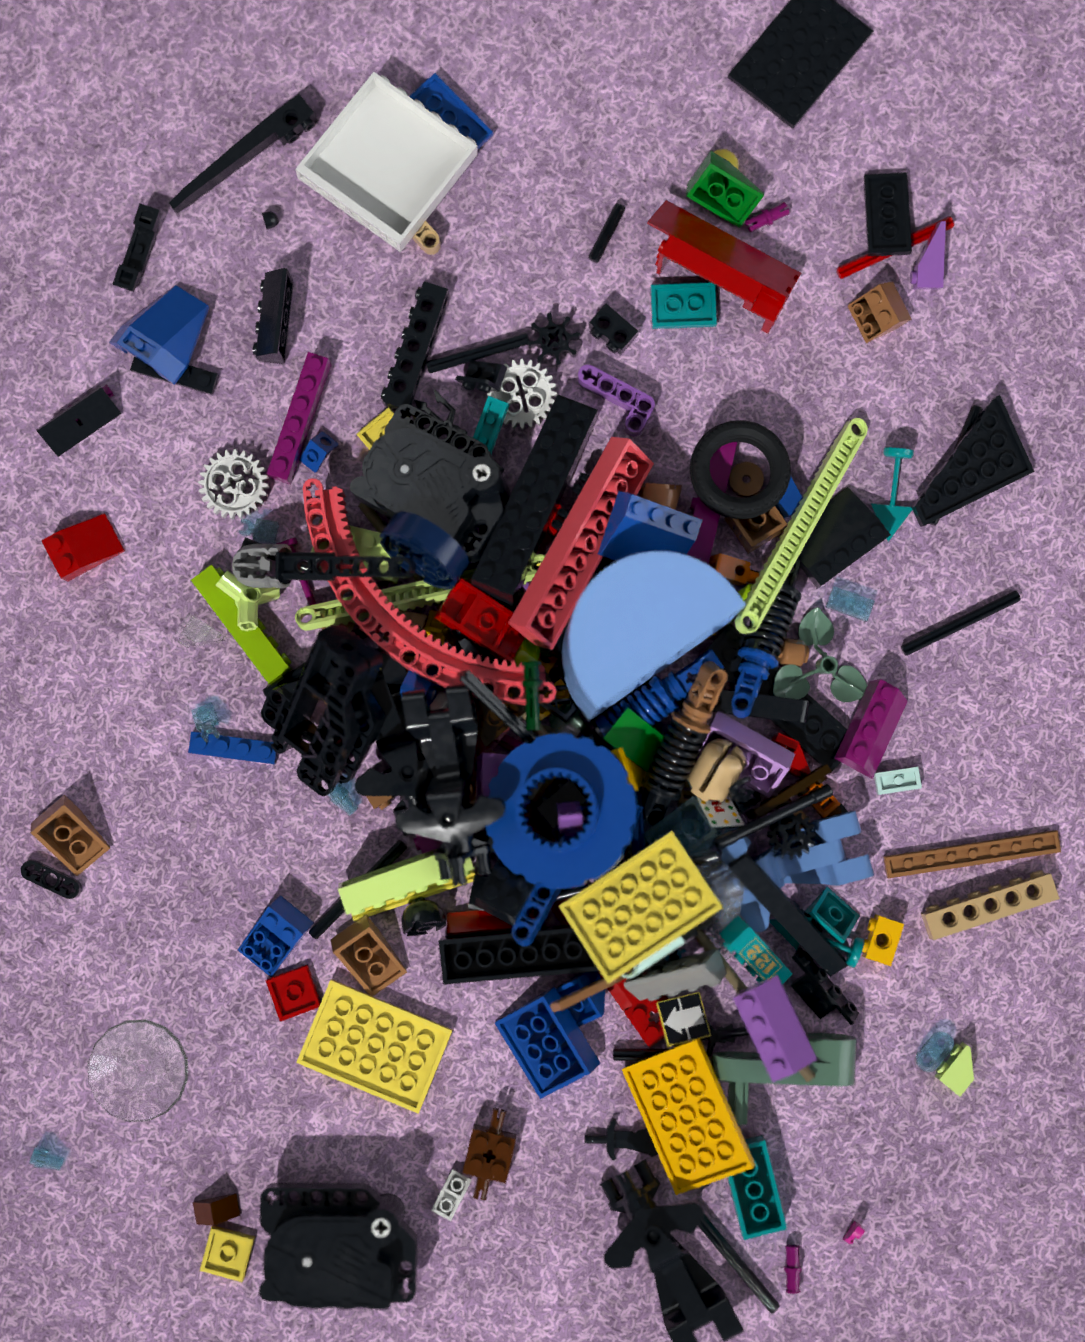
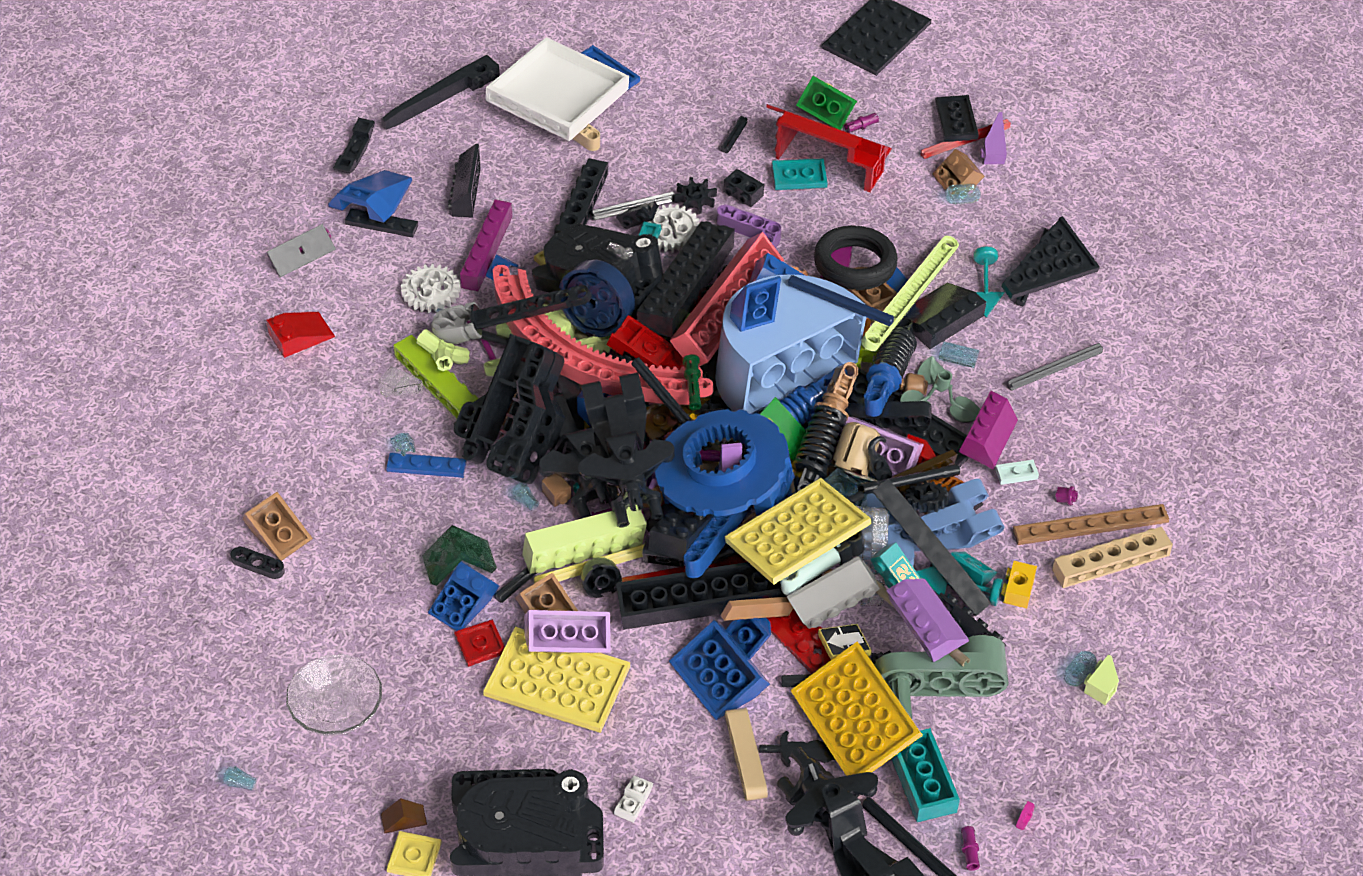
camera: 10 degrees left, 35 degrees down
(263, 886) = (452, 548): none -> clear green bracket
(270, 219) = (462, 130): black hinge -> none
(385, 997) = (567, 631): none -> lavender slope
(449, 490) = (620, 251): none -> clear arm
(498, 1165) = (669, 757): reddish brown brick -> none
(569, 1148) = (746, 754): none -> tan beam
(608, 628) = (756, 304): none -> blue slope
(713, 600) = (840, 300): none -> dark blue axle
(881, 346) = (961, 195): none -> clear light blue plate
(950, 816) = (1066, 495): none -> magenta hose

